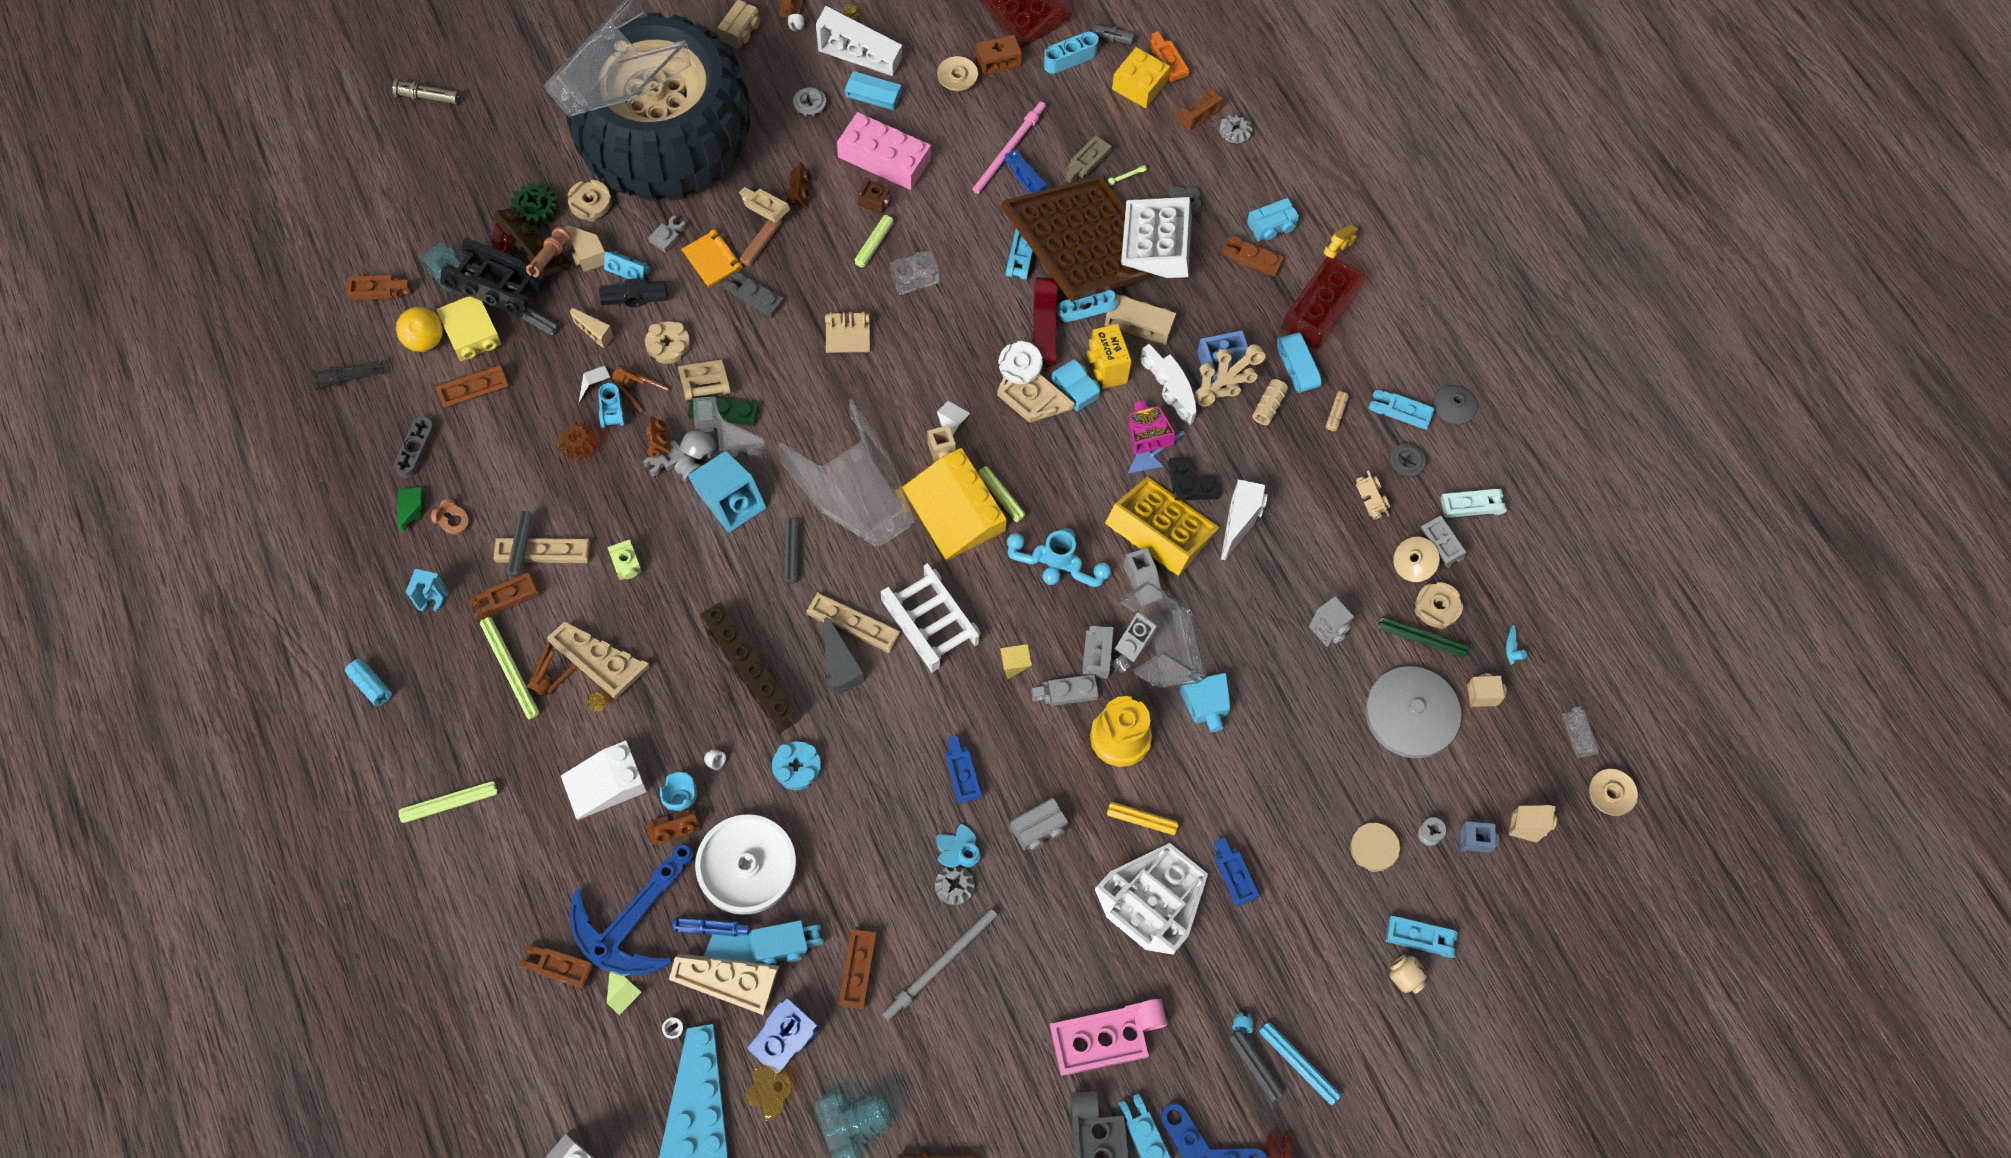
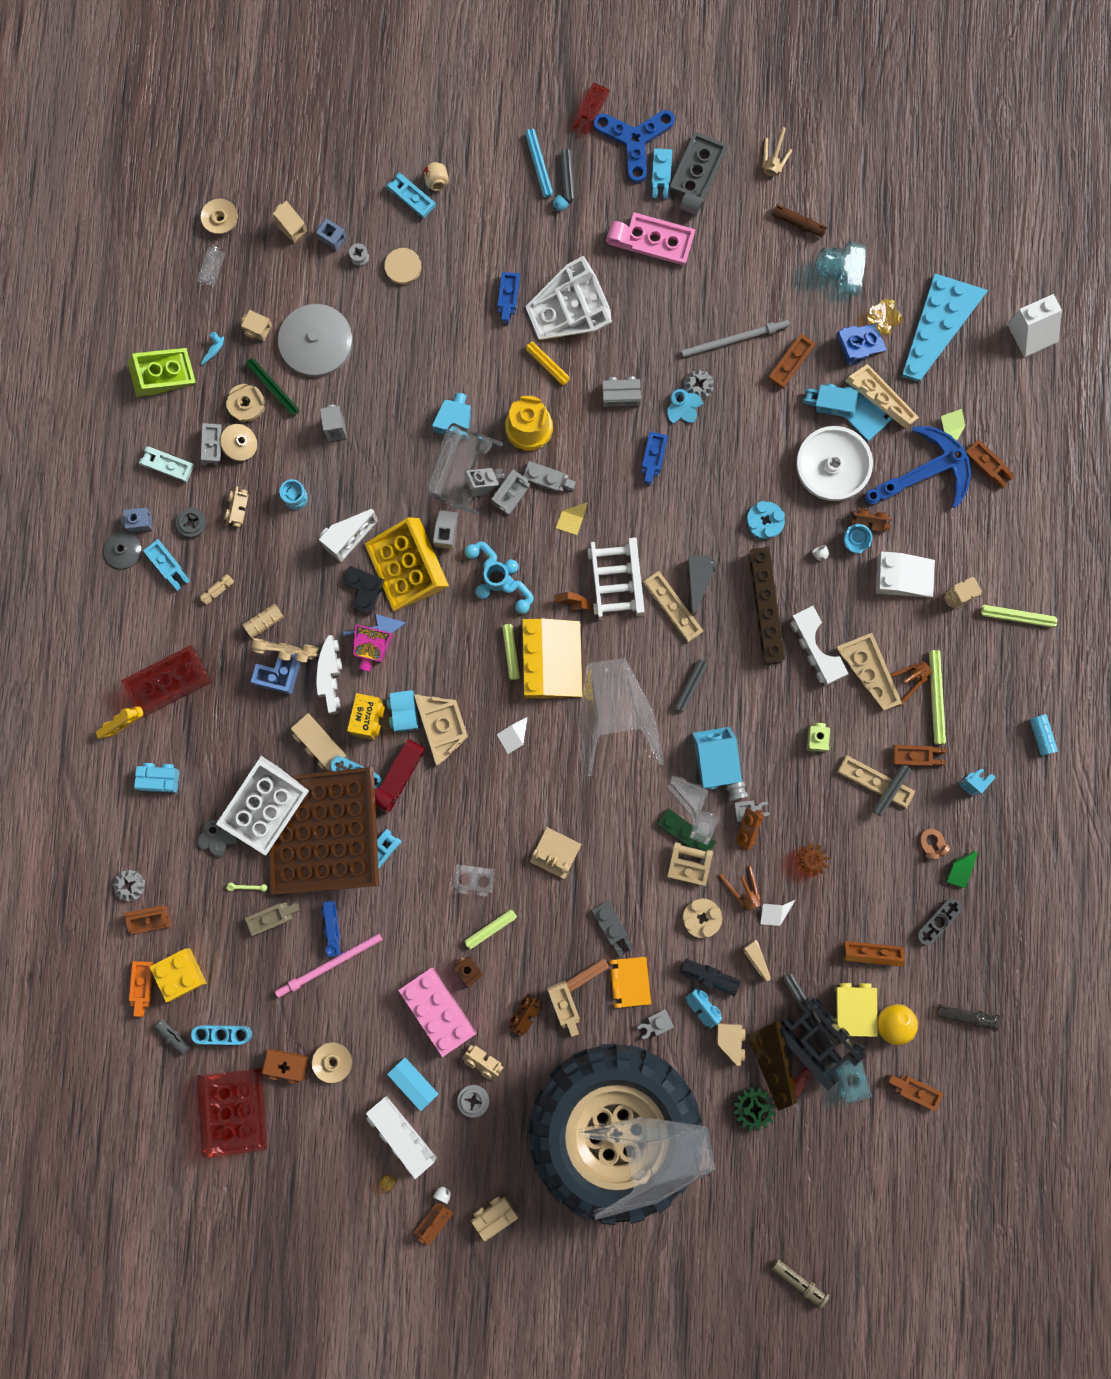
camera: 145 degrees left, 15 degrees up
(525, 784) = (962, 593): none -> tan brick
(552, 247) = (761, 1043): nougat pin -> none
(592, 210) = (712, 1081): tan plate -> none
(596, 702) = (886, 638): clear yellow hinge -> none
(611, 409) = (773, 875): medium azure piece -> none
(646, 637) = (828, 668): none -> white arch
(675, 1032) = (928, 383): white hinge -> none
(697, 444) = (722, 805): light grey hair -> none
(709, 927) = (877, 437): blue piece -> none
(810, 130) = (487, 1068): none -> tan hinge
(940, 442) = (536, 710): tan brick -> none
(960, 573) = (577, 602): none -> dark orange slope
(1020, 362) = (437, 748): white tile -> none
(1252, 256) = (192, 755): dark orange hinge -> none
(1298, 362) = (219, 643): medium azure beam -> none
(1323, 532) = (293, 494): none -> medium azure wheel
(1460, 434) = (137, 520): none -> sand blue brick
(1547, 591) = (160, 371): none -> lime slope

